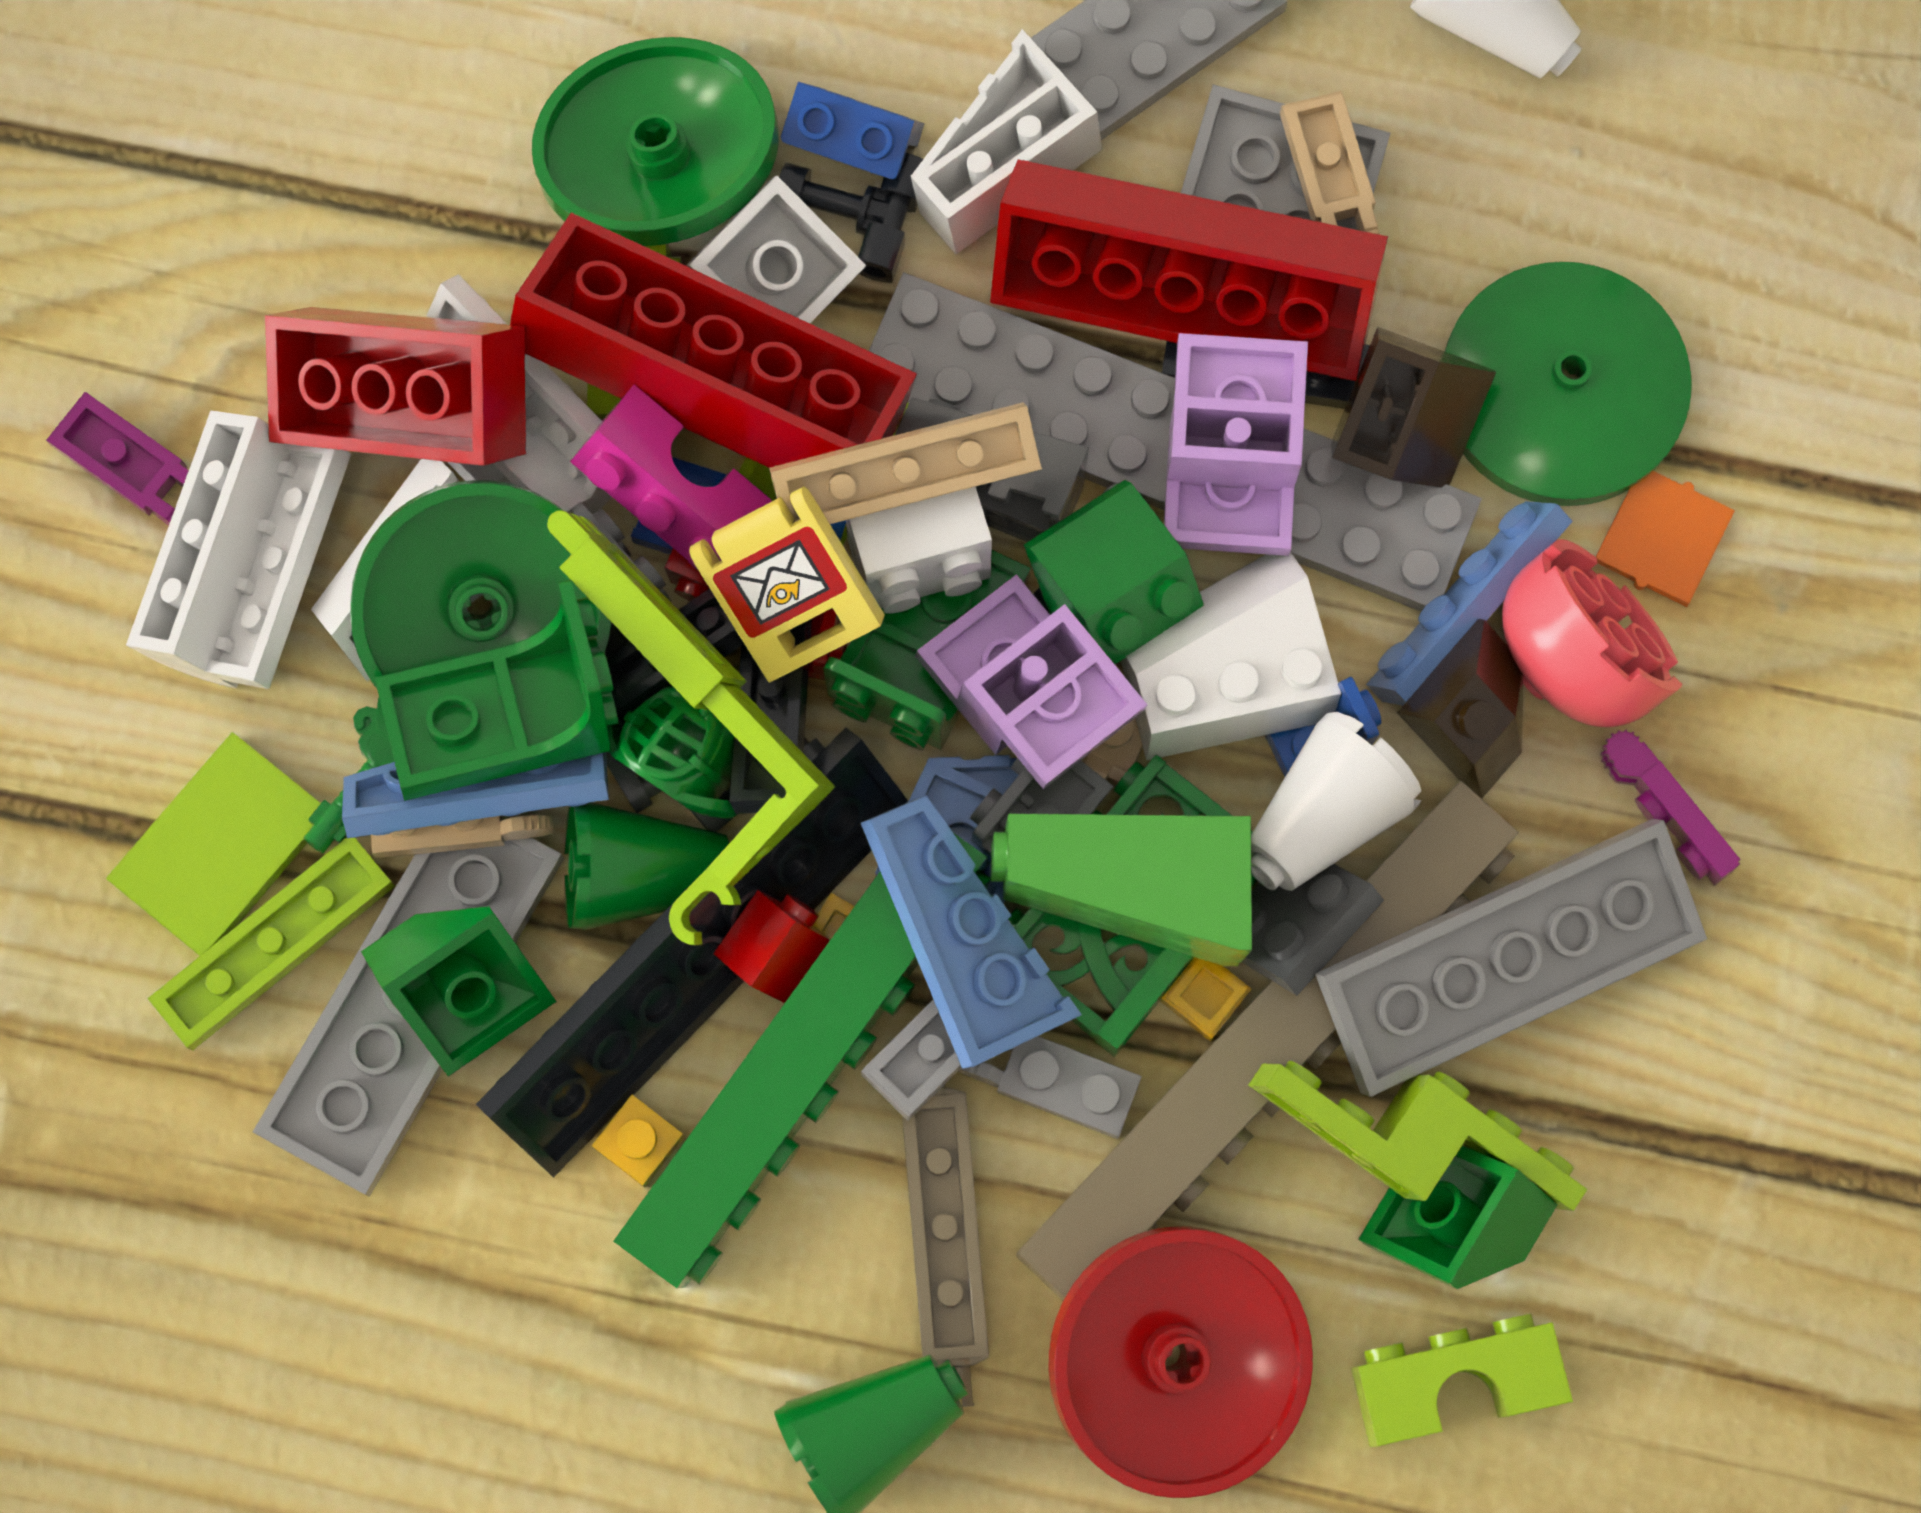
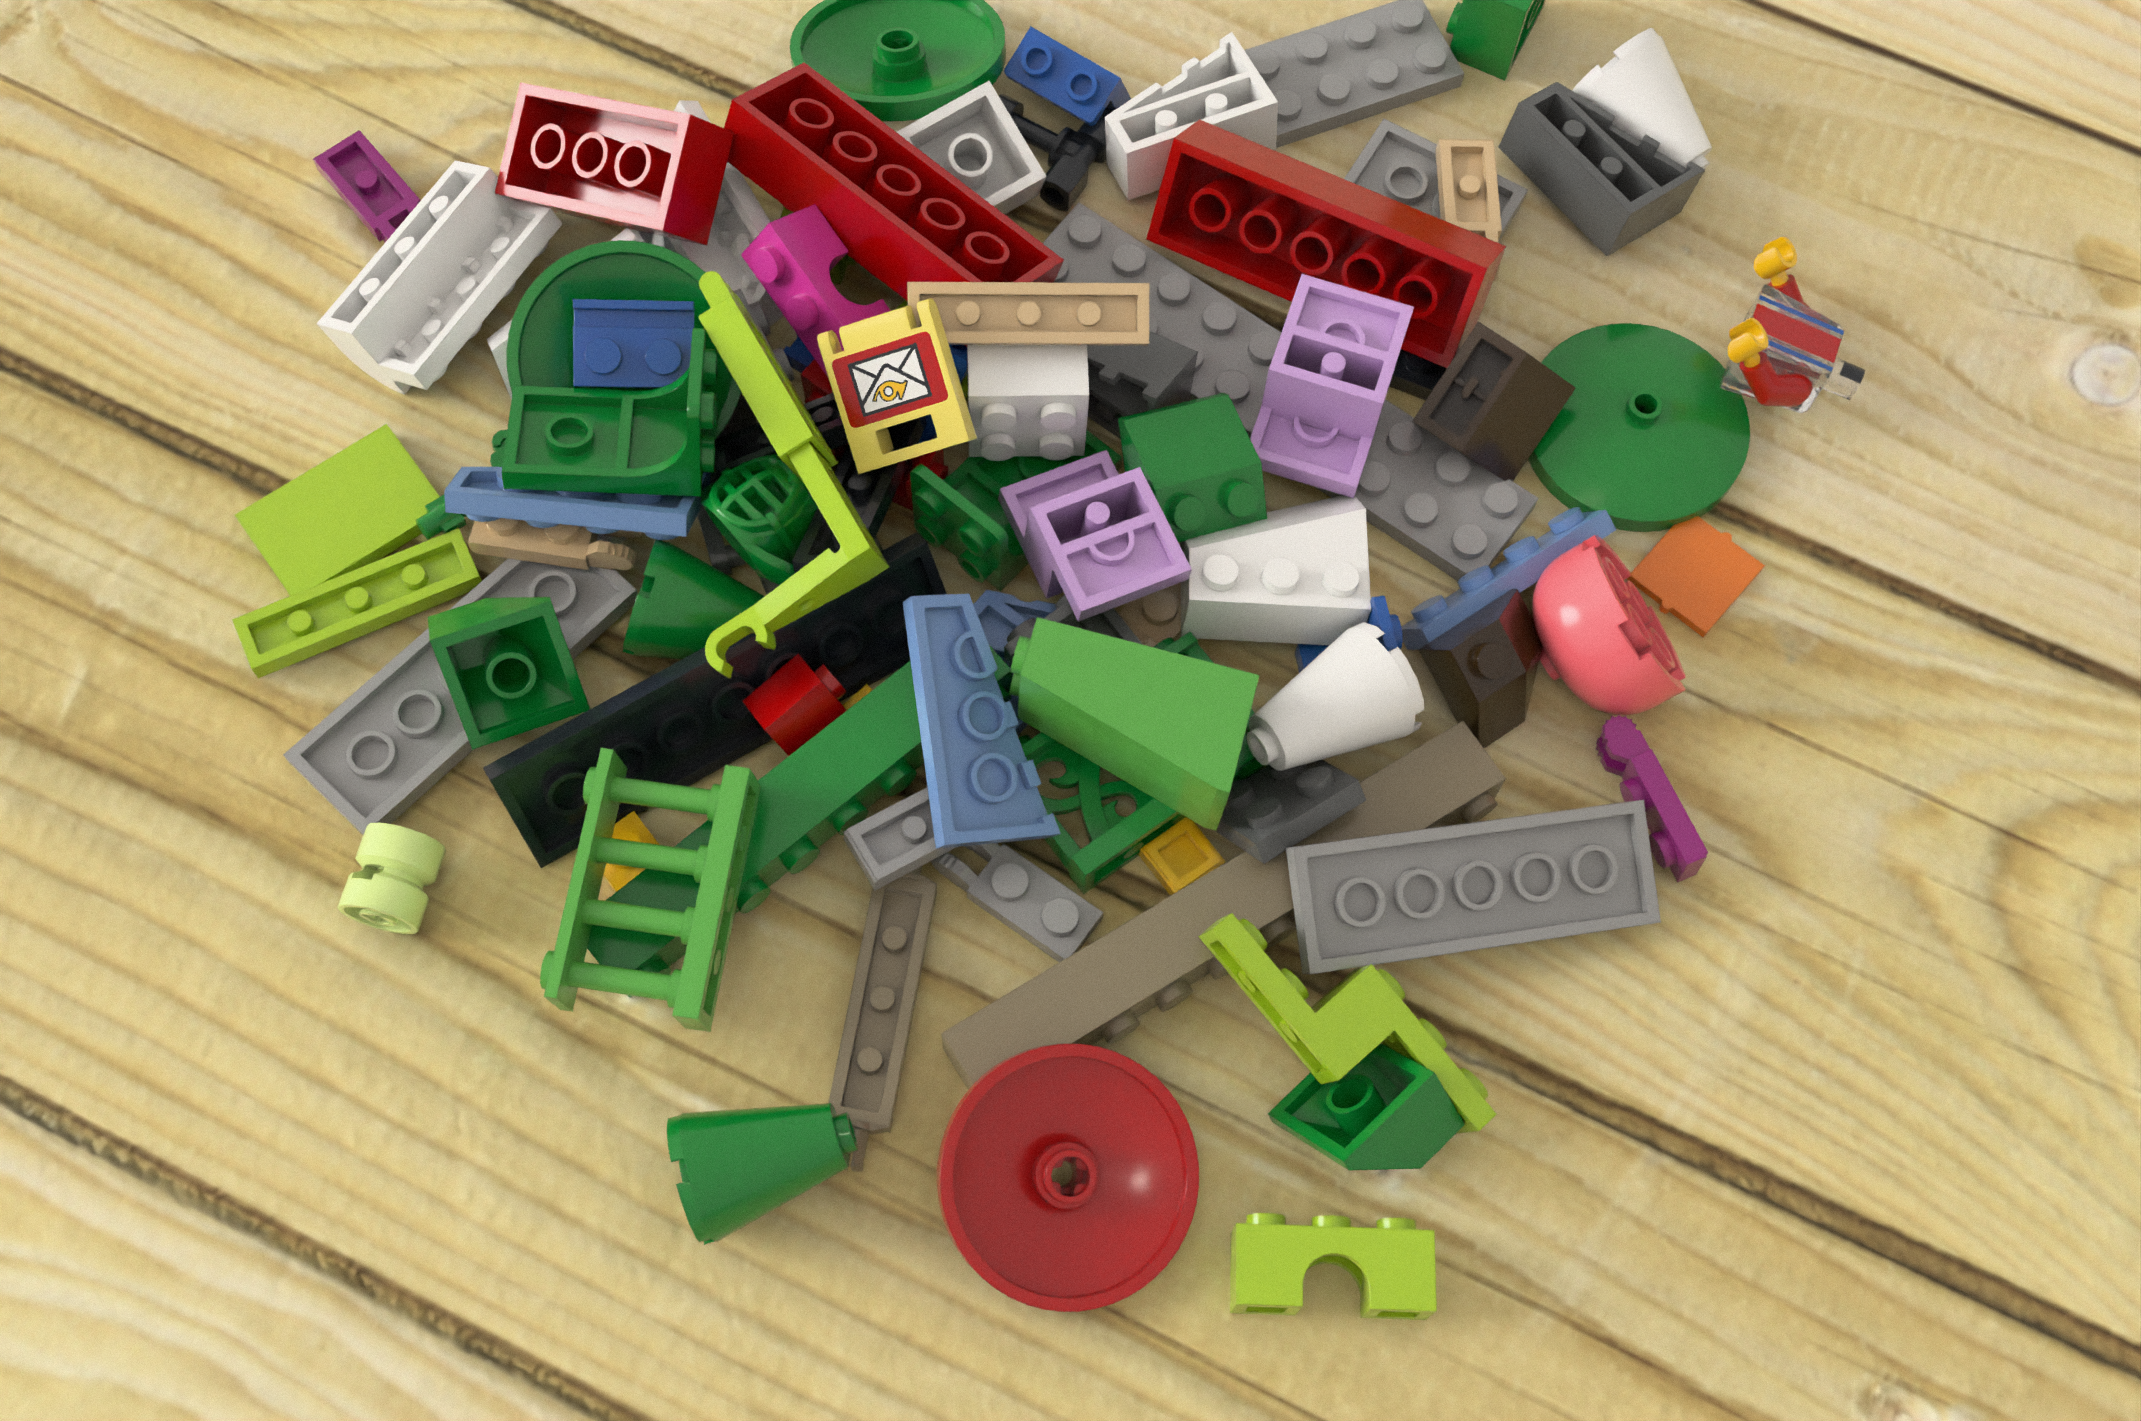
camera: 10 degrees right, 10 degrees down
(410, 1233) = (392, 878): none -> yellowish green wheel
(487, 597) = (631, 342): none -> blue plate
(749, 1214) = (702, 928): none -> bright green fence
(1458, 91) = (1593, 169): none -> dark grey wedge
(1707, 252) = (1783, 346): none -> torso

